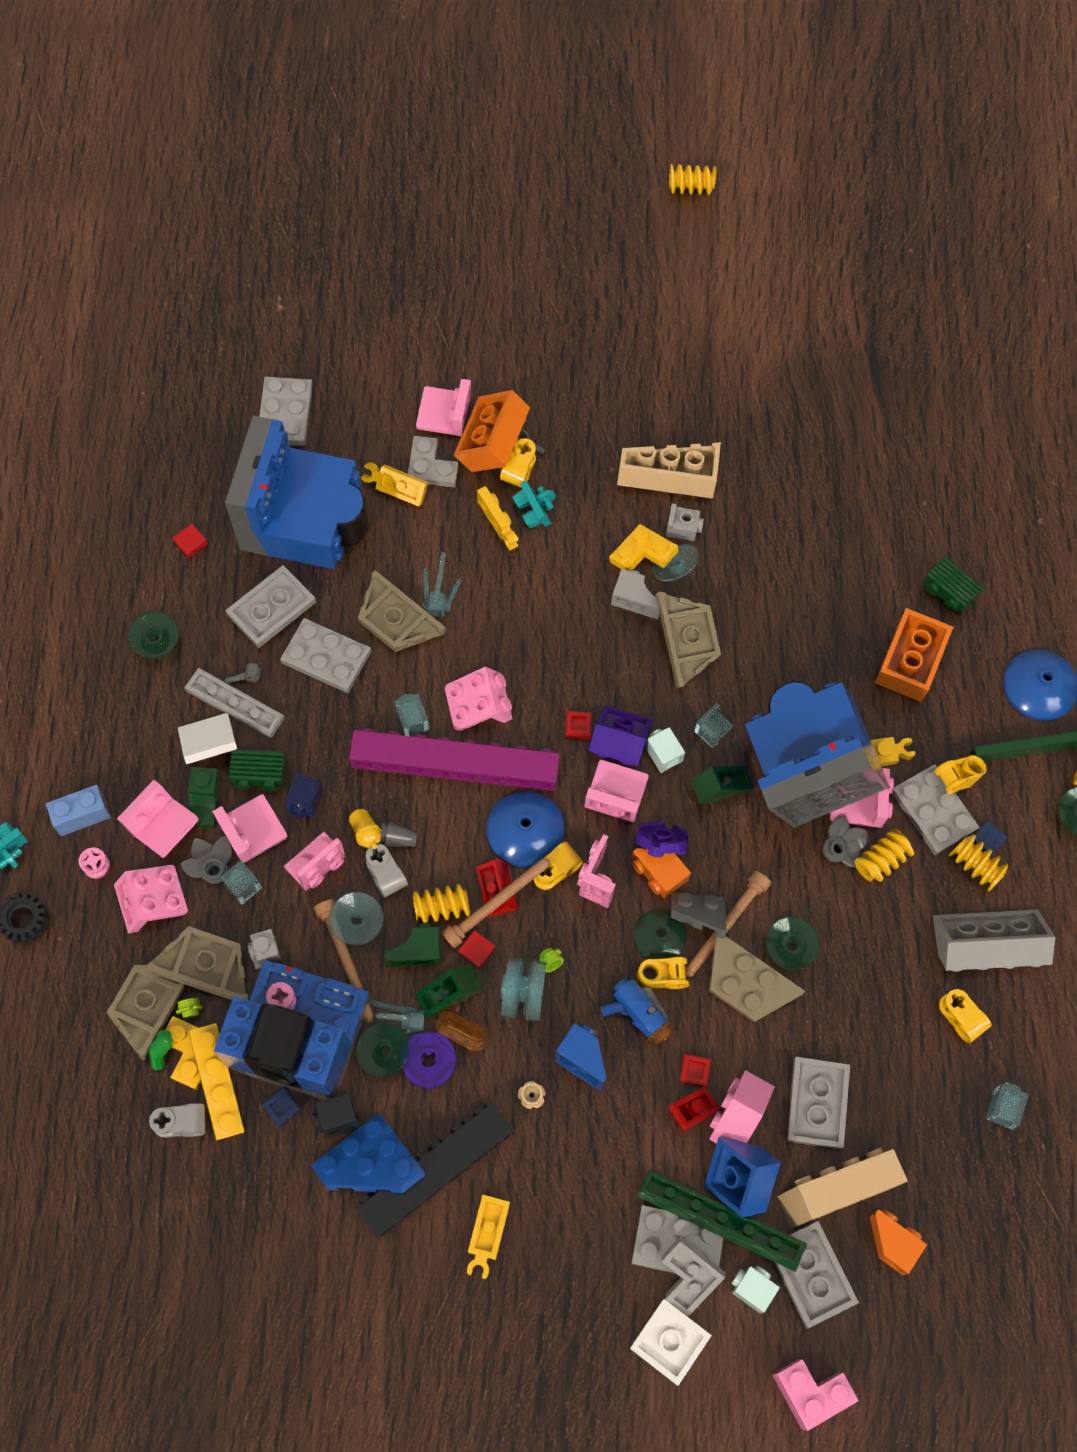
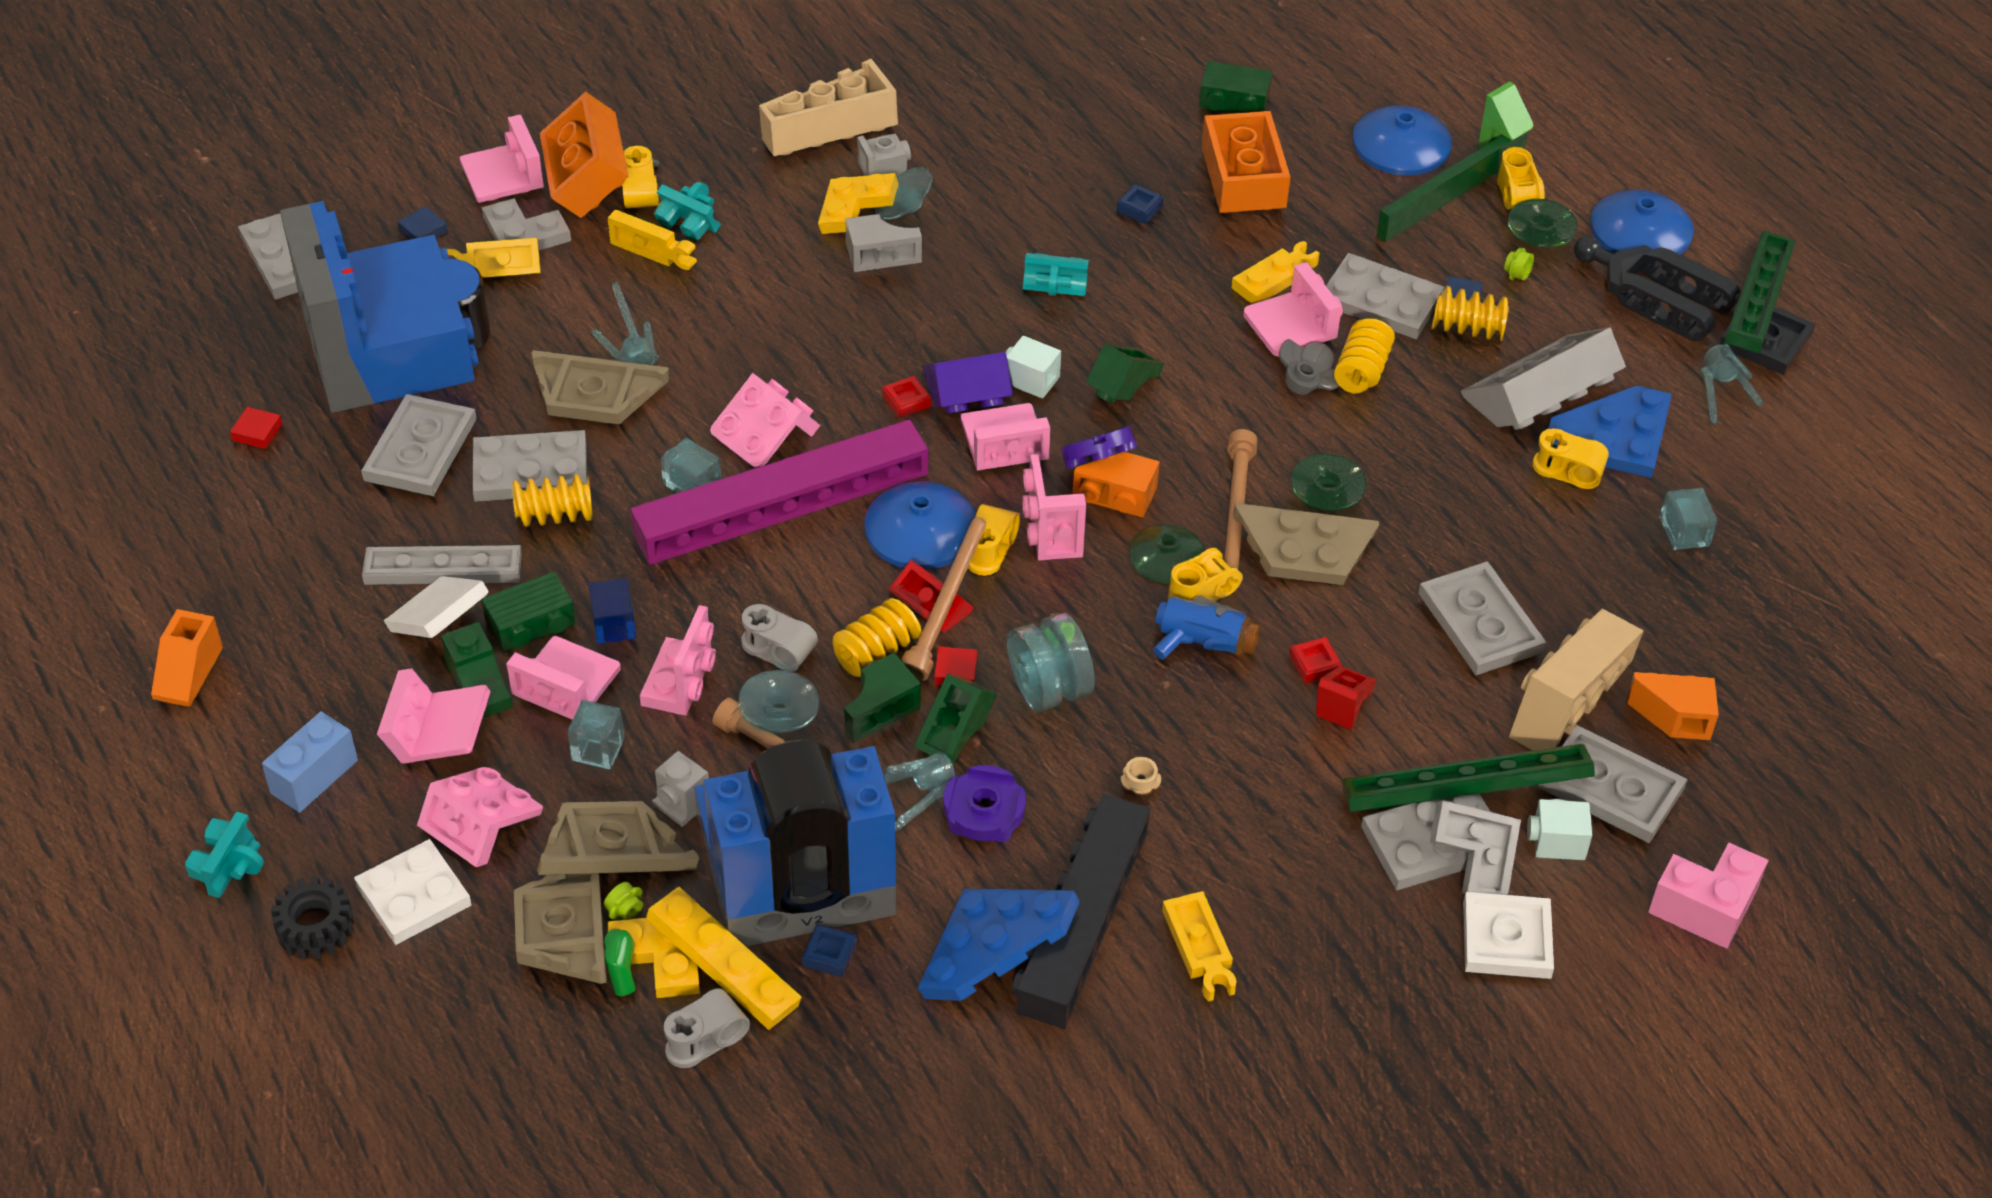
camera: 30 degrees left, 20 degrees down
(53, 698) = (185, 657): none -> orange slope
(85, 929) = (412, 891): none -> white plate
(90, 858) = (377, 802): bright pink wheel -> none
(146, 628) = (279, 537): clear green dish -> none
(206, 857) = (528, 740): dark grey plate -> none
(252, 674) = (443, 525): dark grey hand -> none
(317, 695) = (552, 500): none -> yellow piece
(336, 1116) = (917, 904): black brick -> none
(365, 829) = (723, 603): yellow piece -> none
(371, 1047) = (918, 801): clear green dish -> none
(372, 431) = (422, 224): none -> dark blue tile
(396, 835) = (773, 594): dark grey cone -> none
(462, 1031) = (1019, 752): clear orange plate -> none
(582, 1056) = (1179, 696): blue slope -> none
(688, 636) = (973, 251): dark tan wing -> none
(700, 911) = (1196, 499): dark grey wing -> none
(713, 726) = (1068, 330): clear light blue panel -> none
(729, 680) = (1055, 274): none -> teal hips
(742, 1176) = (1455, 718): blue slope -> none
(743, 1108) = (1407, 662): bright pink brick -> none
(814, 752) = (1217, 273): piece -> none
(826, 647) = (1140, 204): none -> dark blue tile
(961, 773) = (1384, 241): yellow piece -> none
(1015, 1005) = (1625, 423): none -> blue plate
(1044, 836) = (1519, 264): none -> lime plate

